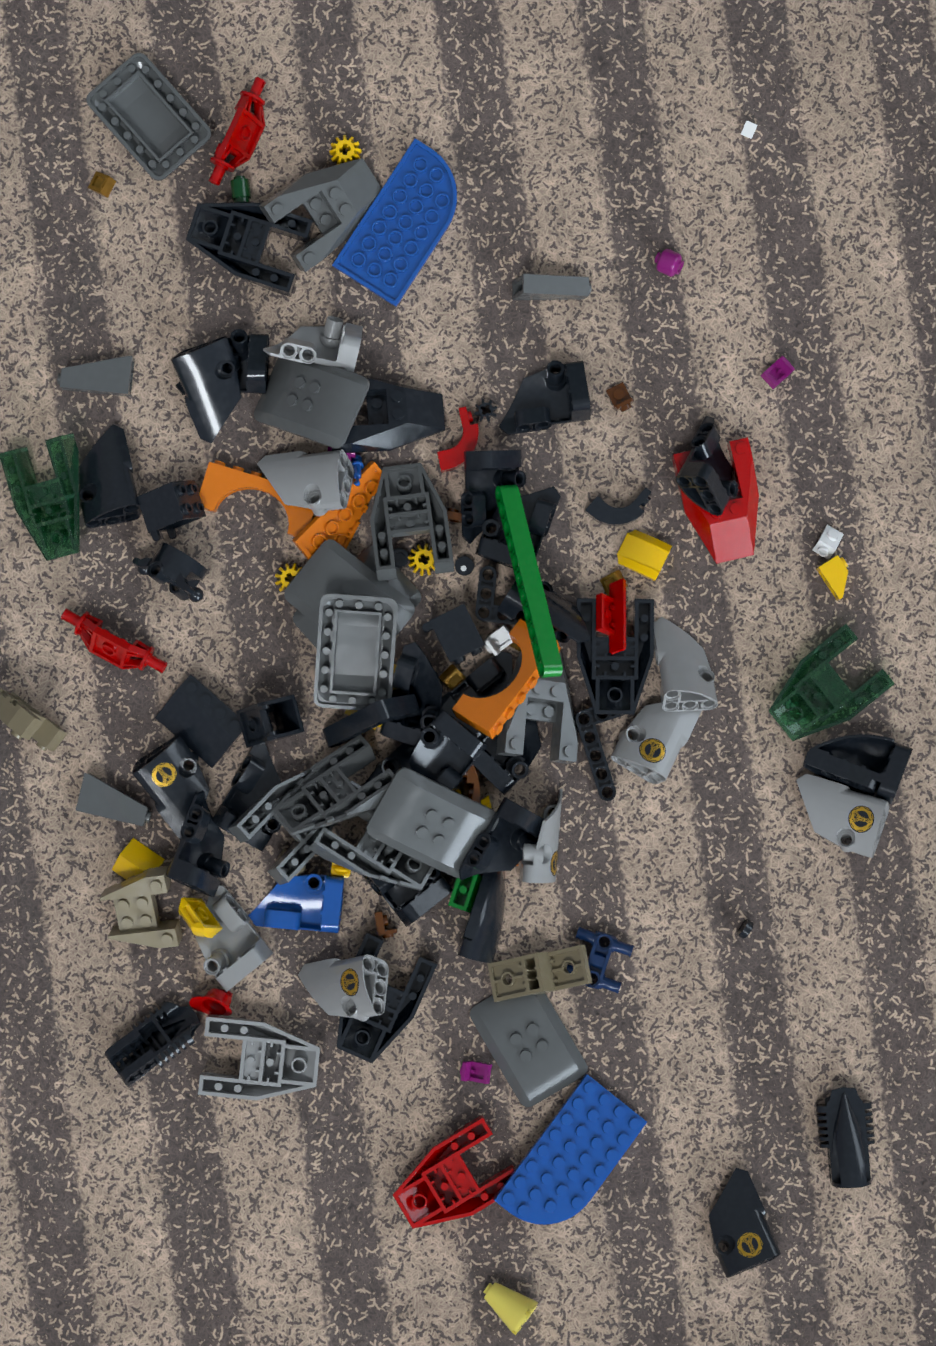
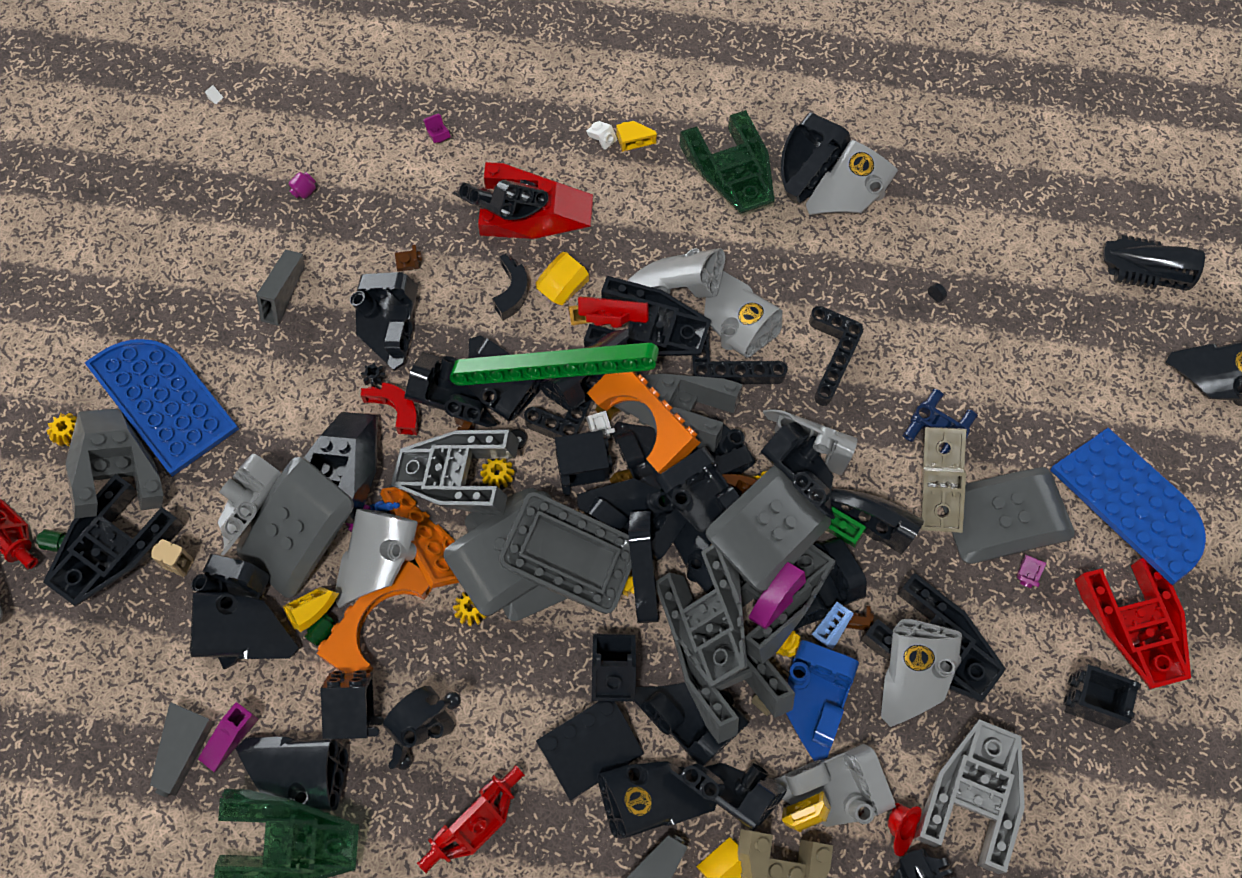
camera: 75 degrees left, 20 degrees down
(120, 413) = (227, 736): none -> magenta slope
(232, 455) = (319, 630): none -> dark green brick
(249, 440) = (309, 607): none -> yellow slope
(254, 302) = (172, 557): none -> tan brick
(366, 895) = (834, 635): none -> light blue slope
(368, 846) = (778, 595): none -> magenta slope
(373, 1155) = (1101, 697): none -> black container
(646, 846) = (840, 355): none -> black beam

